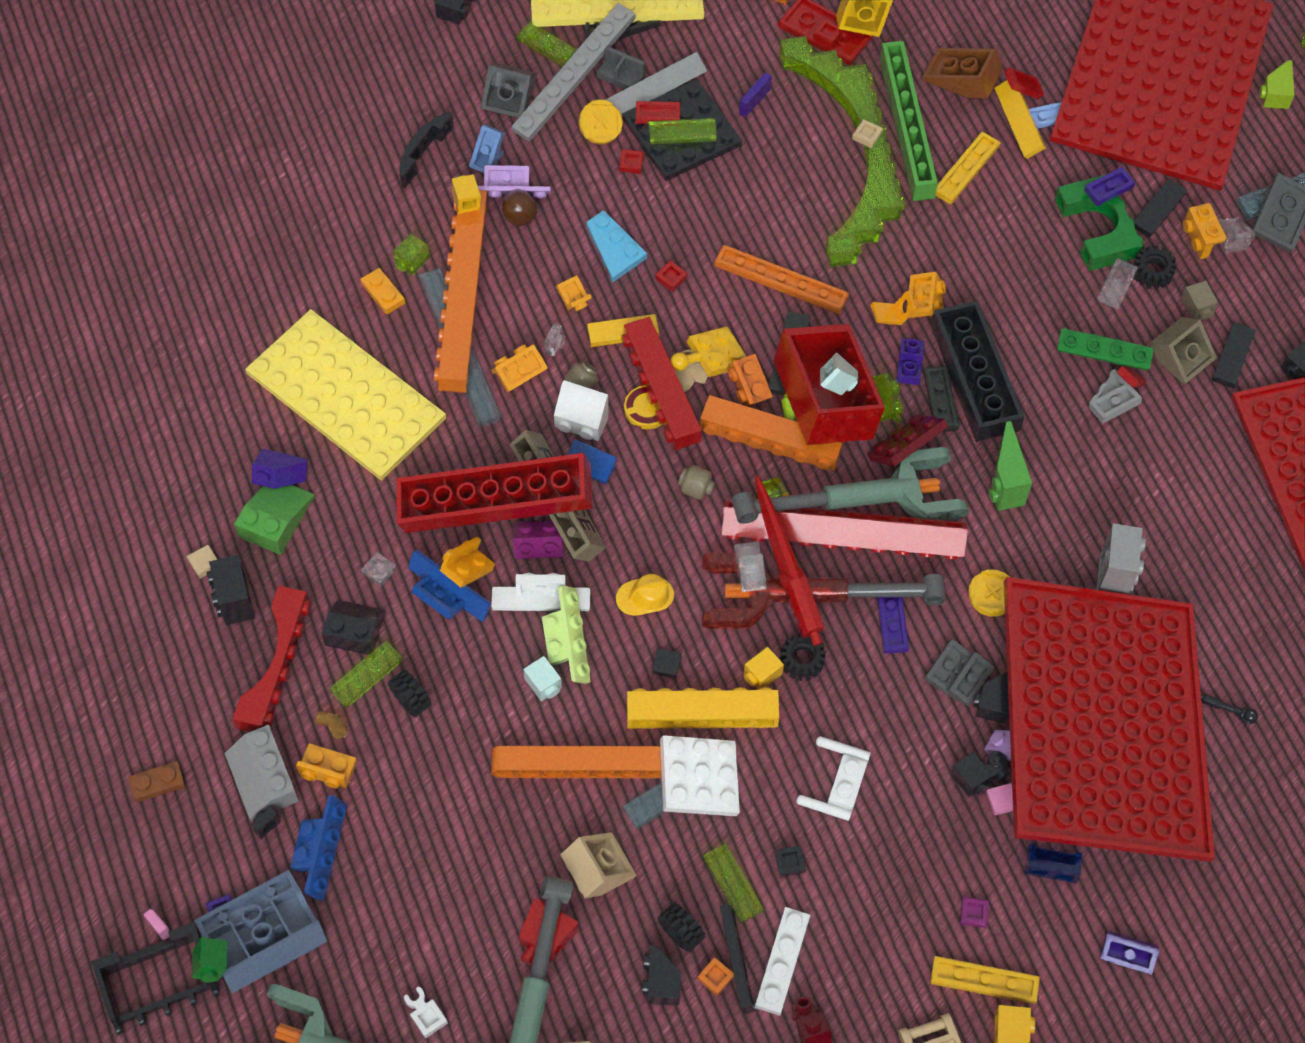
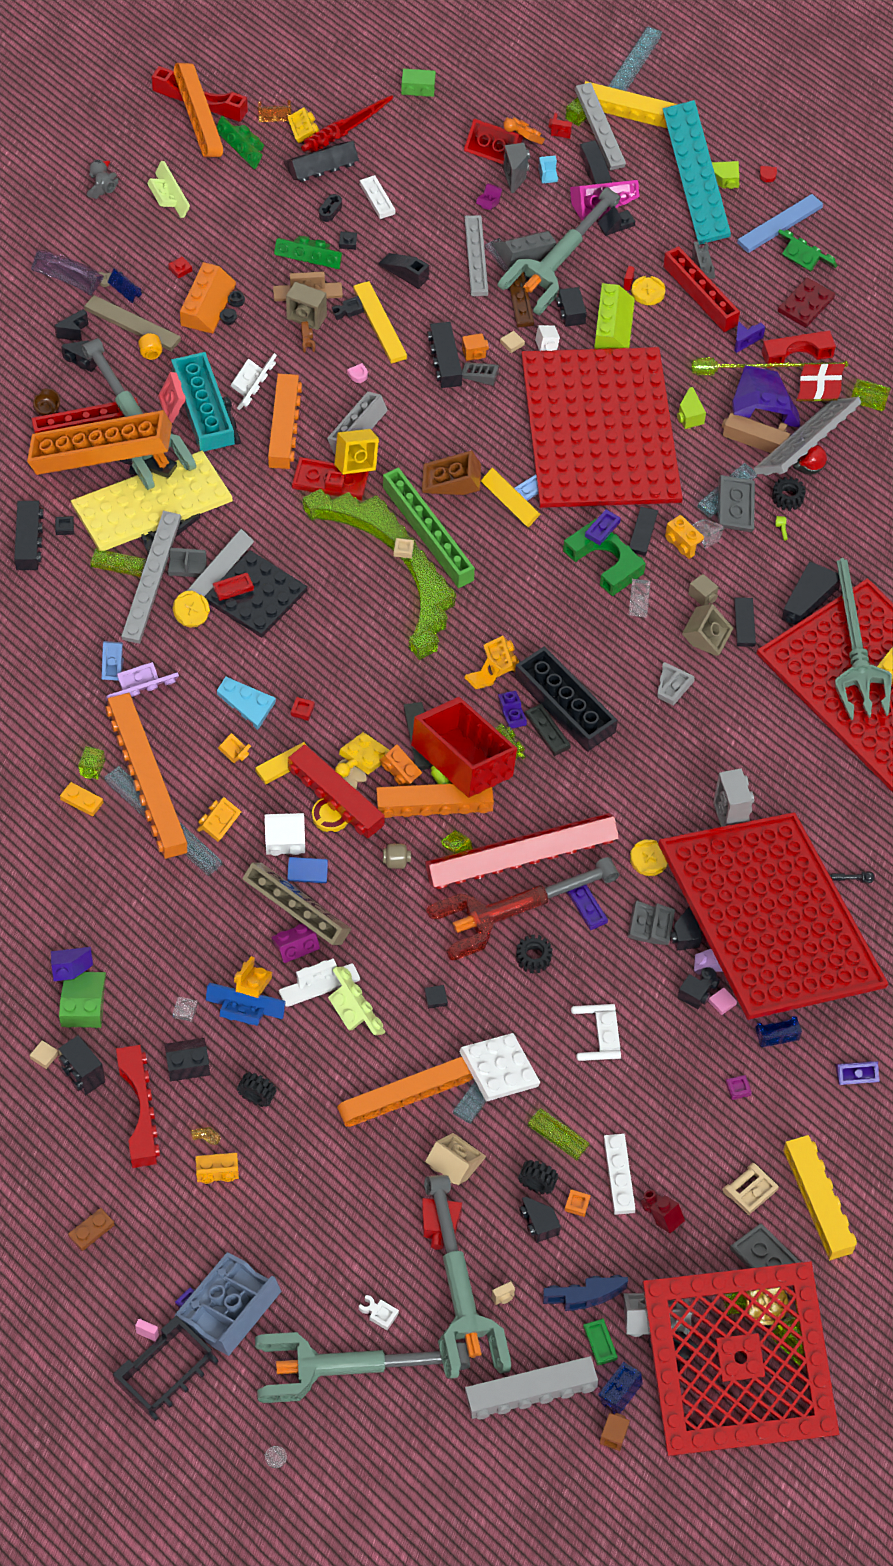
camera: 25 degrees left, 5 degrees down
(209, 959) = (204, 1334): green brick -> none
(260, 772) = (170, 1191): light grey slope -> none
(265, 822) = (191, 1225): black plate -> none
(317, 847) = (239, 1227): blue bracket -> none
(346, 394) = (91, 888): light yellow plate -> none
(366, 674) = (213, 1090): clear neon green tile -> none
(435, 129) = (62, 659): black slope -> none
(466, 194) = (117, 700): yellow brick -> none
(494, 493) = (251, 918): red brick -> none
(508, 89) = (105, 608): dark grey slope -> none
(519, 207) = (159, 697): reddish brown hair -> none
(543, 679) = (350, 1042): light aqua brick -> none
(554, 340) = (237, 788): clear plate -> none
(583, 375) = (271, 806): dark tan head -> none
(631, 161) = (228, 631): red tile -> none
(644, 595) = (395, 953): yellow piece -> none
(682, 131) = (259, 594): clear neon green tile -> none
(702, 708) = (478, 1018): yellow brick -> none
(737, 959) = (587, 1184): black tile -> none
(750, 566) = (468, 901): clear slope -> none
(755, 94) = (301, 547): dark purple tile -> none
(763, 669) = (509, 974): yellow brick -> none
(781, 279) = (386, 682): orange tile -> none
(790, 575) = (501, 895): red piece -> none
(790, 861) = (592, 1102): black plate -> none
(838, 375) = (472, 736): light aqua slope -> none
(900, 488) = (550, 805): sand green piece -> none
(907, 439) = (538, 768): dark red plate -> none
(966, 167) = (487, 548): yellow tile -> none
(985, 980) = (766, 1130): yellow tile -> none
(1011, 477) = (625, 765): bright green slope -> none
(1024, 83) = (502, 469): red tile -> none
(1105, 349) = (652, 649): green bracket -> none
(1131, 376) = (679, 663): red tile -> none
(1158, 257) = (664, 569): black tyre -> none

